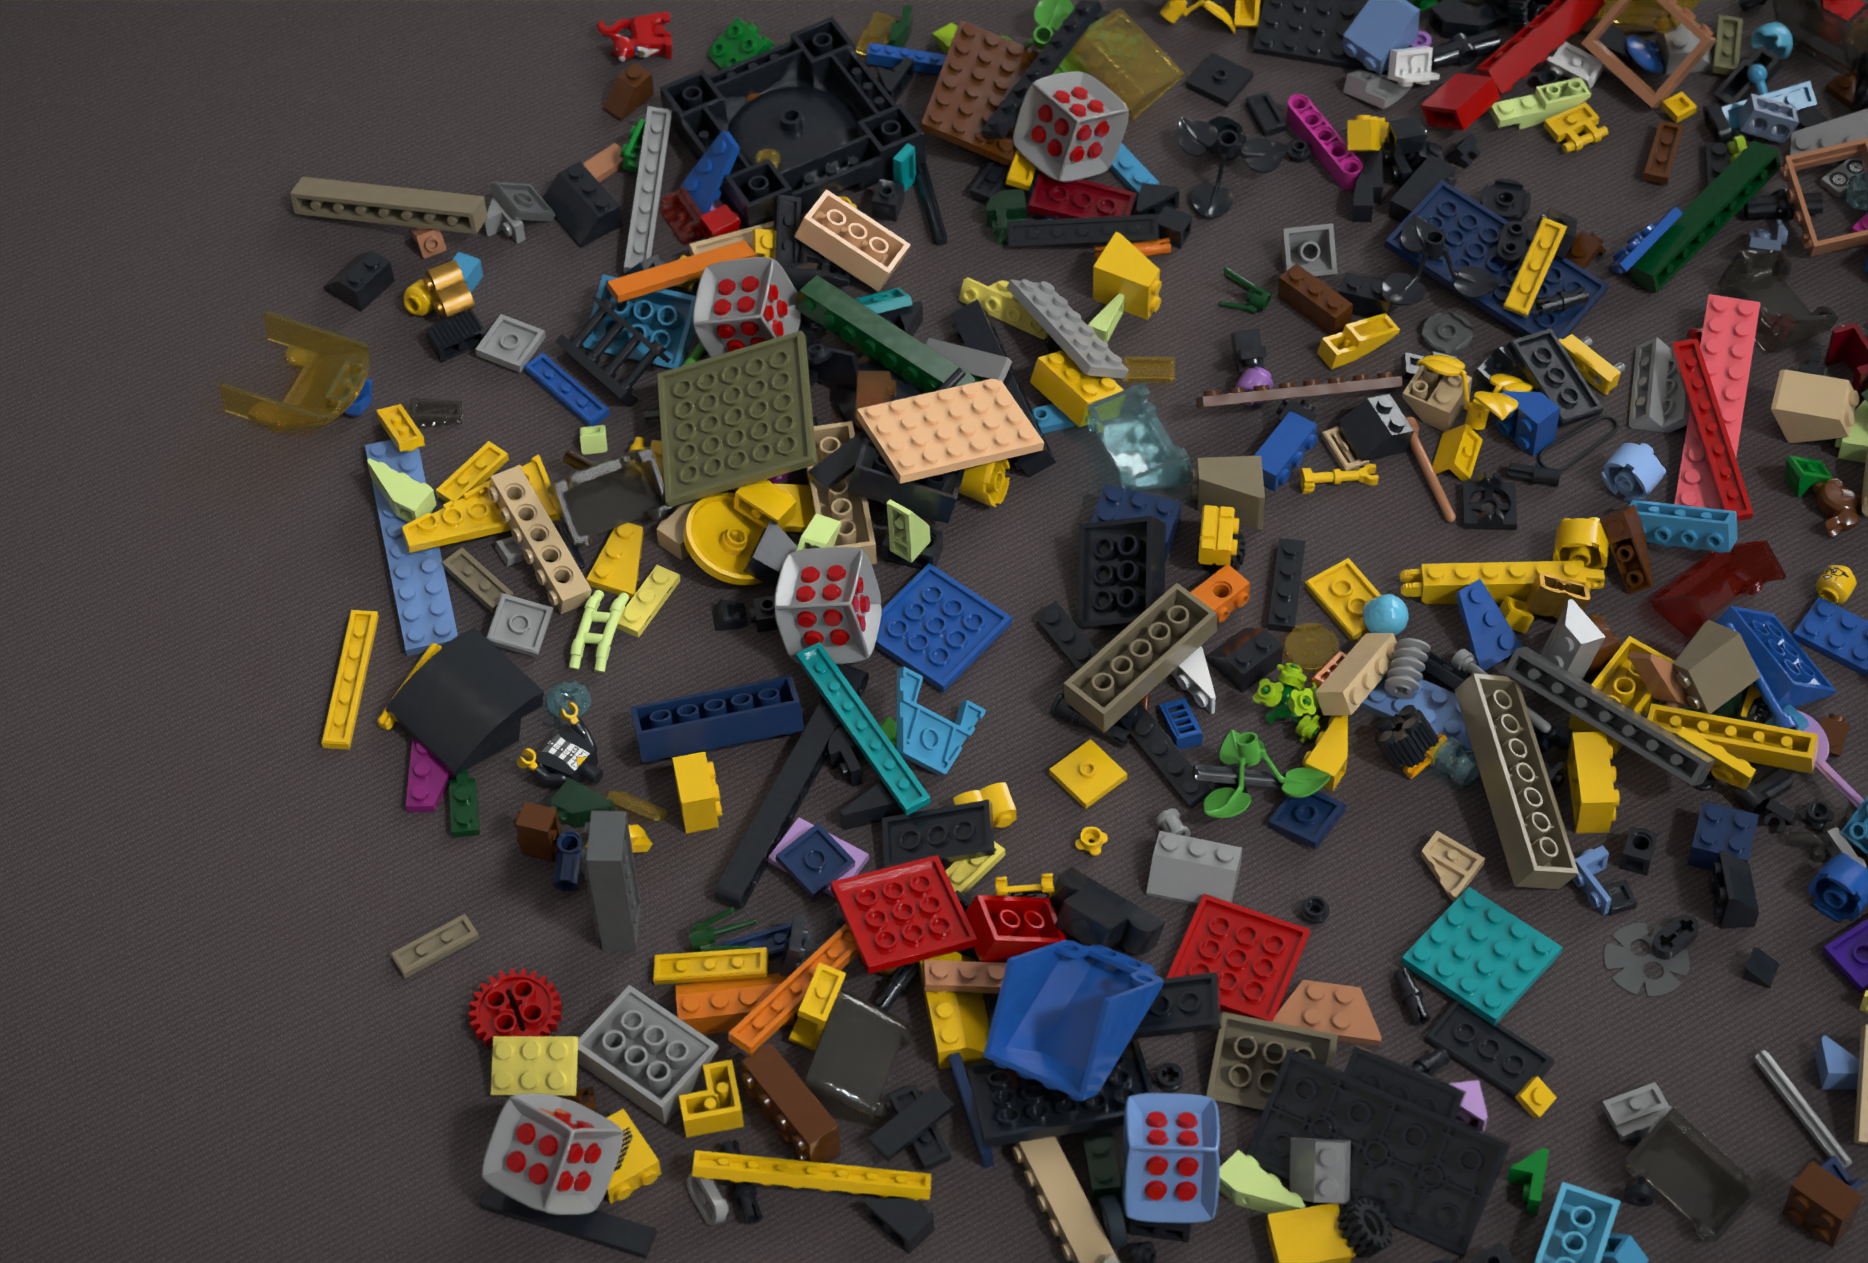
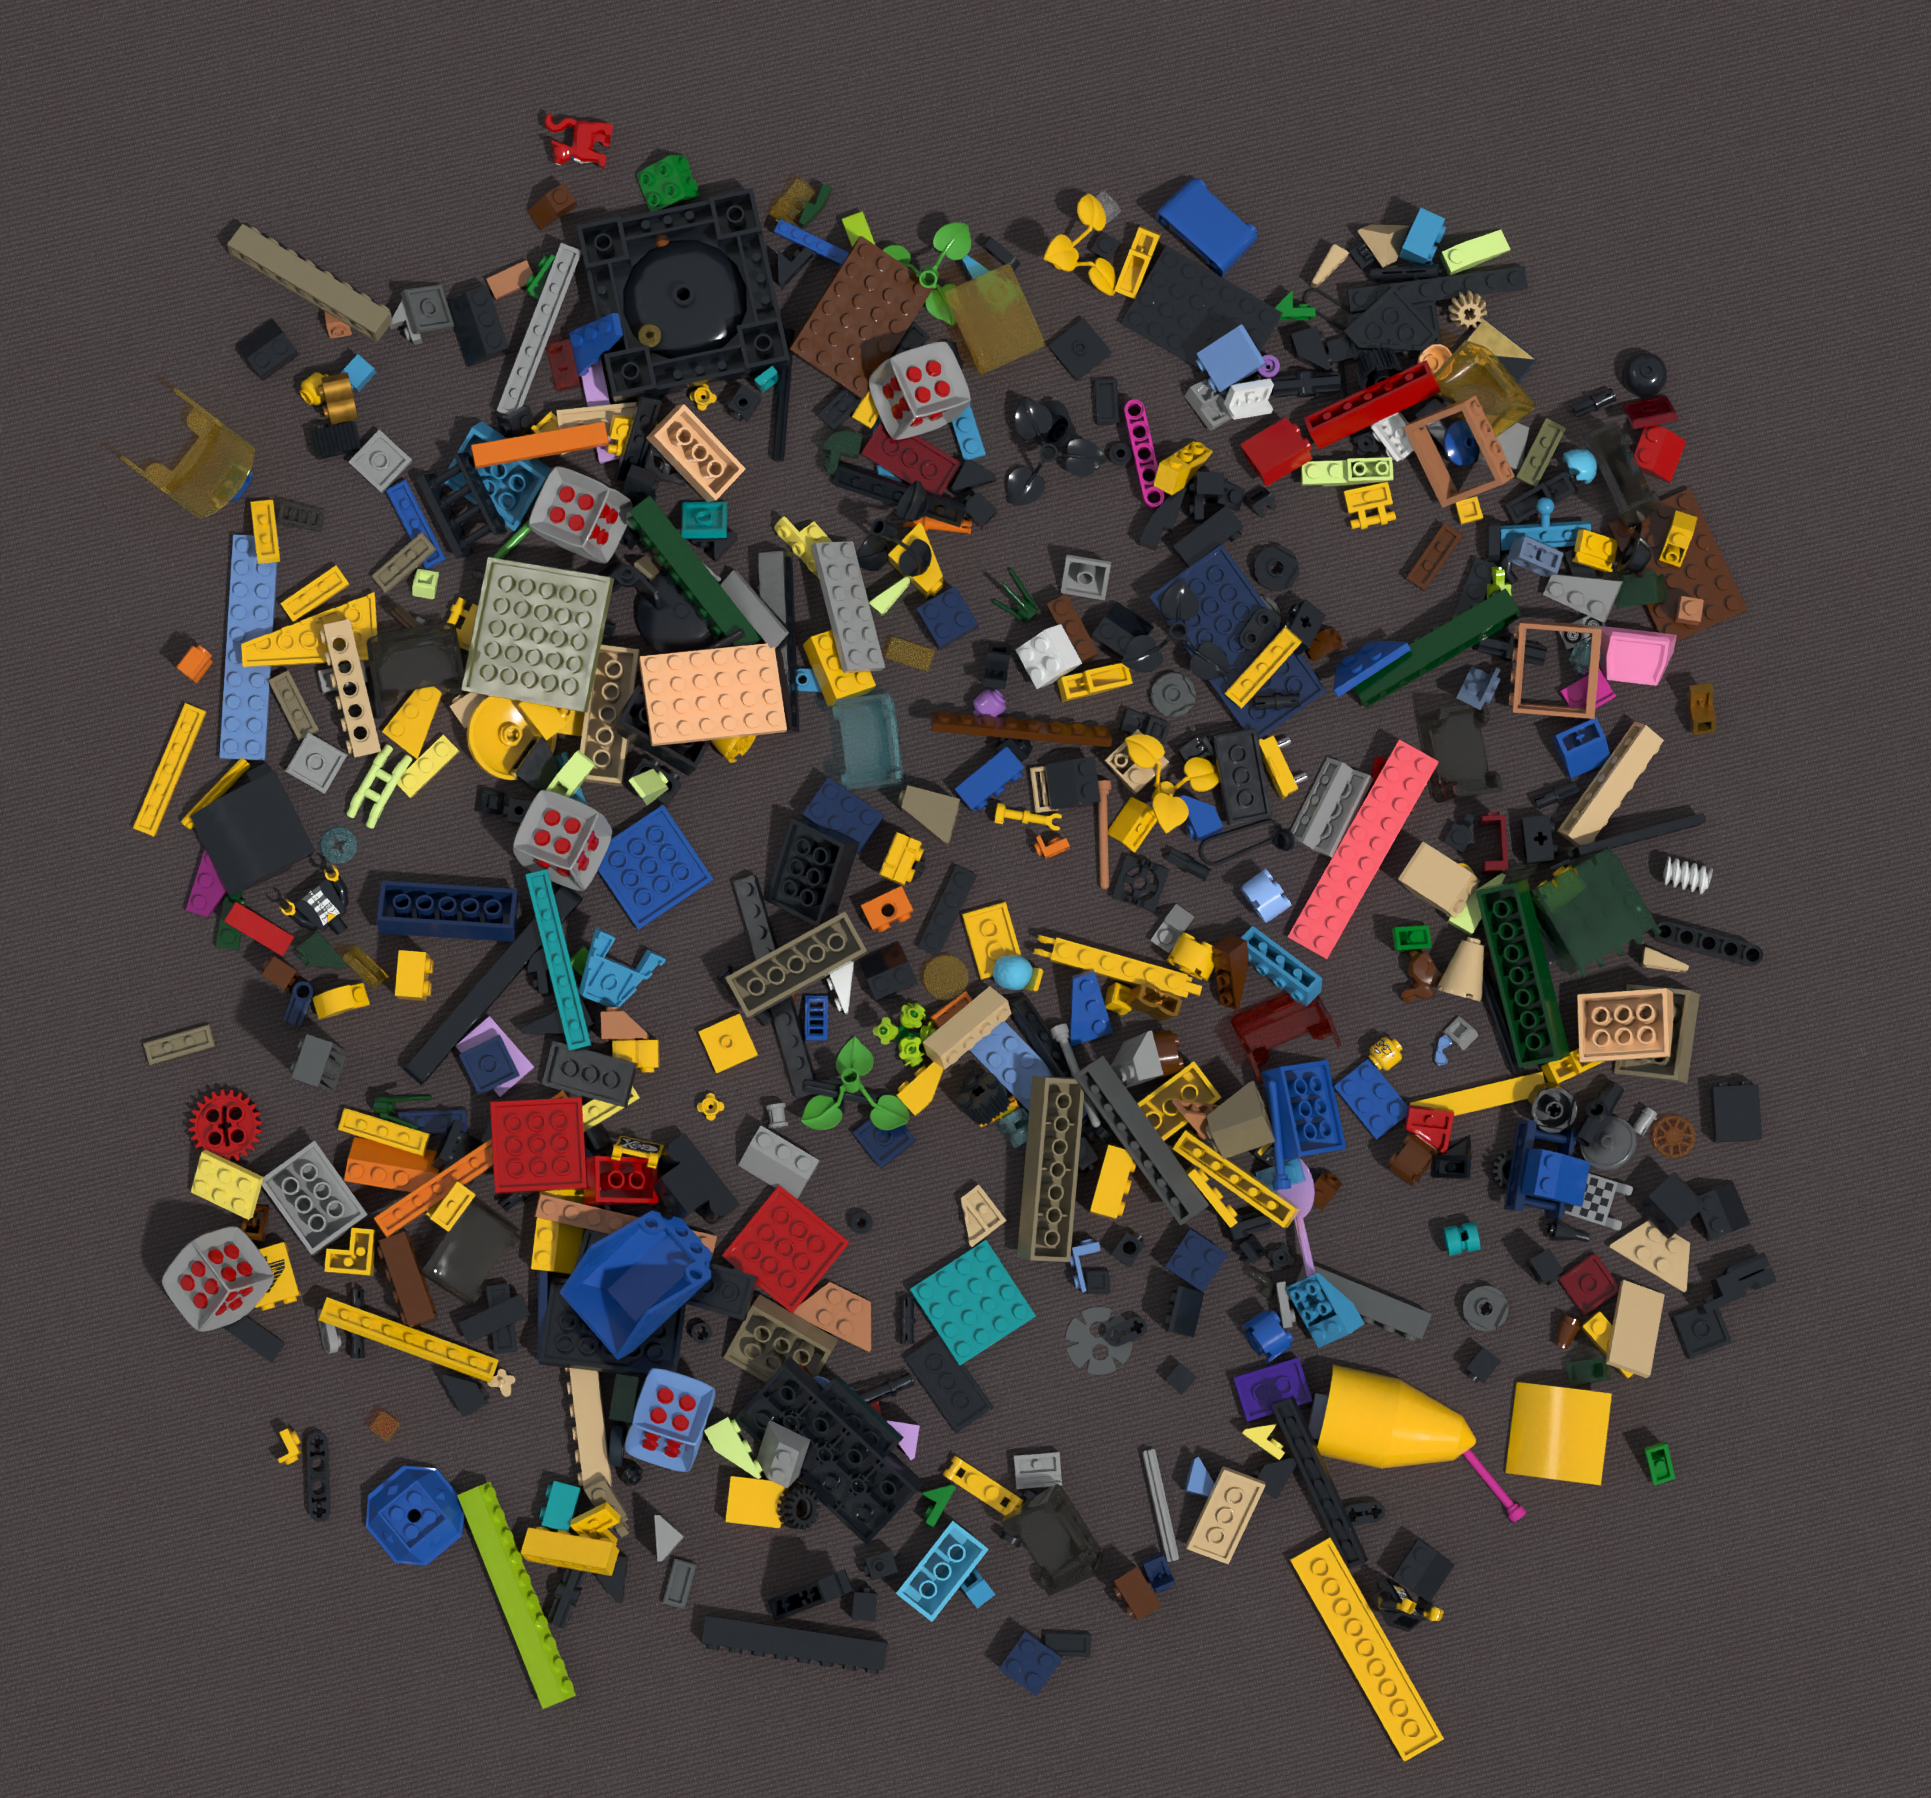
camera: 15 degrees right, 30 degrees up
(353, 562) = (195, 663): none -> orange brick
(404, 495) = (249, 608): yellowish green slope -> none
(492, 796) = (258, 929): none -> red tile
(564, 422) = (404, 562): none -> dark tan tile
(719, 222) = (591, 392): red brick -> none
(838, 464) = (614, 694): black tile -> none
(873, 389) = (664, 630): clear orange brick -> none
(944, 1199) = (503, 1382): none -> tan piece
(958, 773) = (620, 1027): none -> nougat slope
(1044, 65) = (914, 318): black plate -> none
(1101, 224) = (917, 558): none -> black plant
(1177, 322) = (947, 618): none -> dark blue brick
(1301, 321) = (1048, 656): none -> white brick
(1377, 496) = (1055, 847): none -> orange bracket
(1406, 667) = (1007, 1035): light grey piece -> none
(1414, 623) = (1033, 984): none -> yellow slope
(1535, 1097) = (966, 1435): yellow plate -> none
(1541, 538) = (1172, 928): none -> light grey slope
(1579, 1150) = (982, 1486): none -> yellow plate
(1621, 424) = (1284, 839): none -> black plate
(1711, 428) = (1343, 879): red plate -> none
(1823, 101) = (1595, 550): none -> yellow plate

